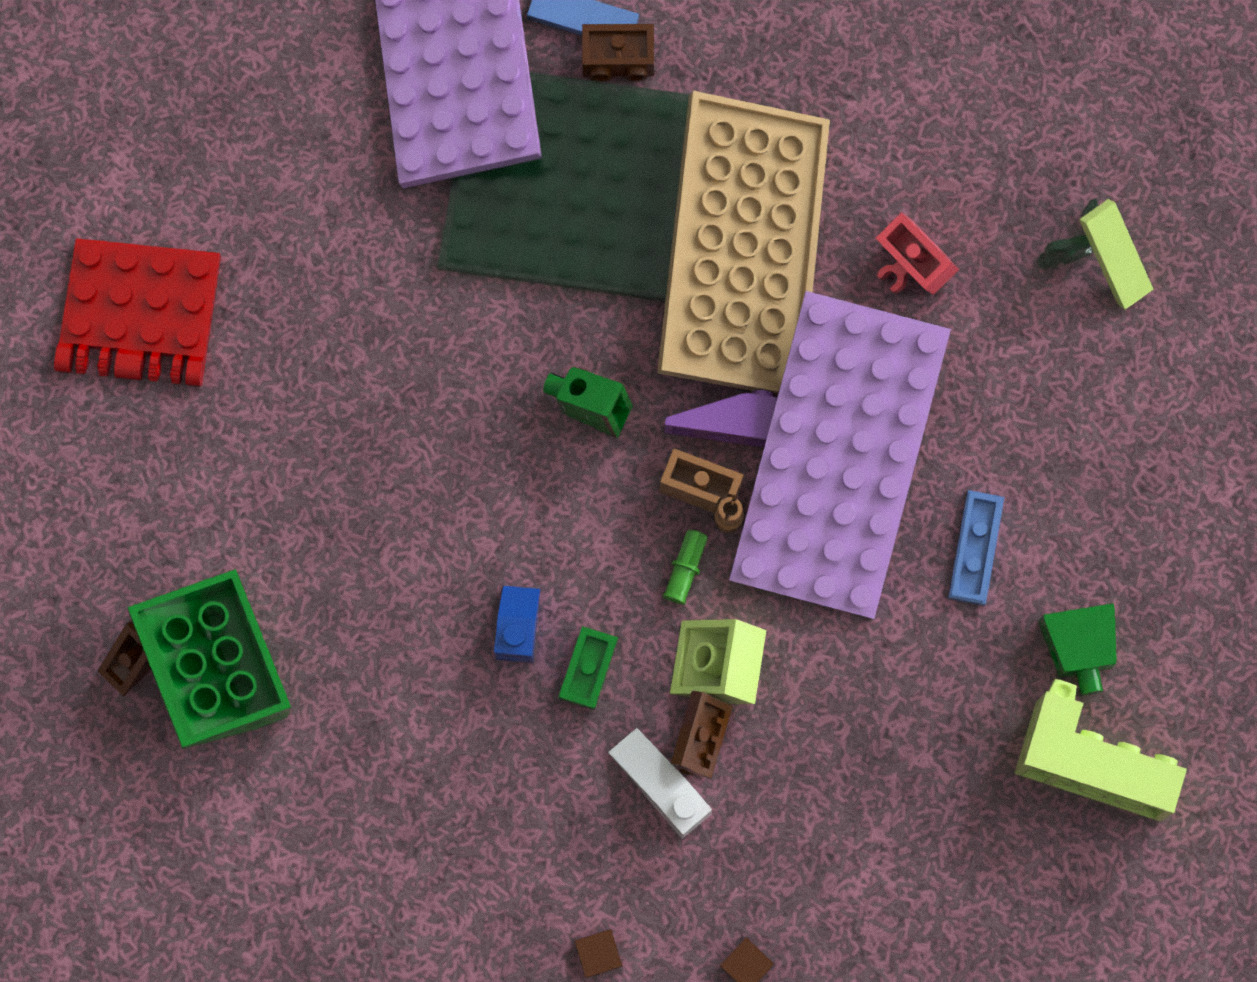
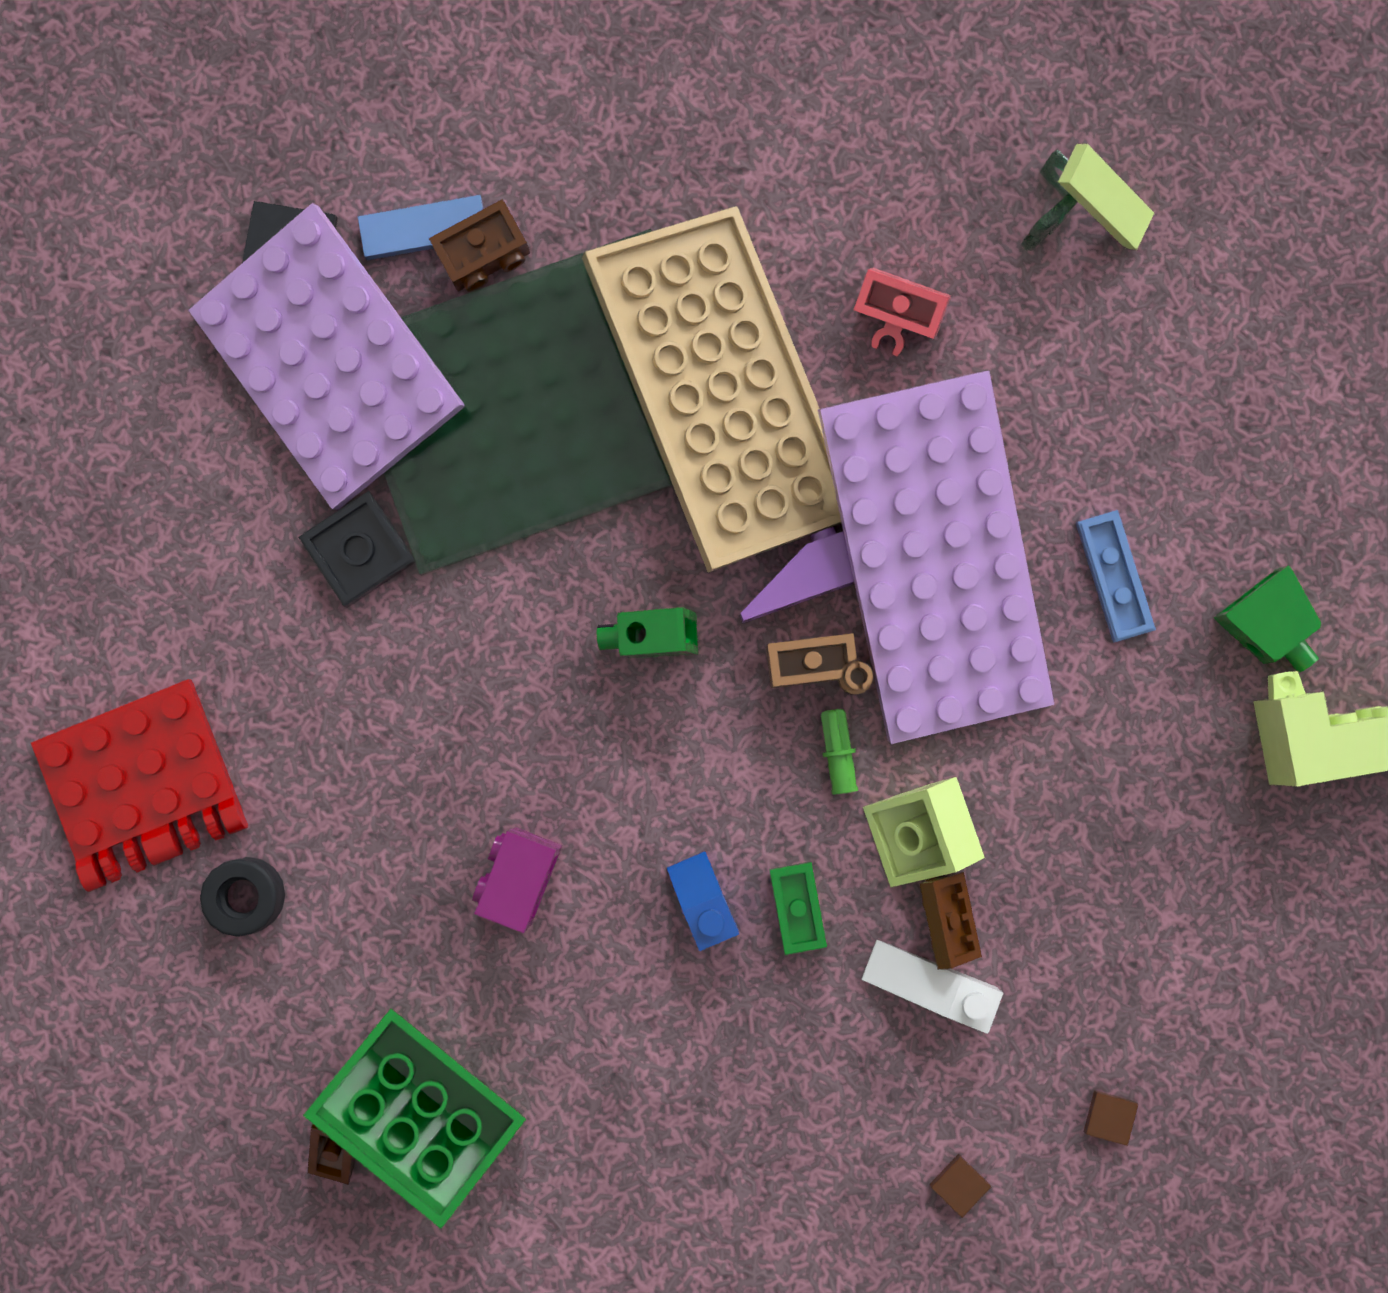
camera: 25 degrees left, 10 degrees up
(179, 454) = (215, 900): none -> black tyre
(385, 524) = (517, 878): none -> magenta brick
(401, 224) = (357, 549): none -> black plate

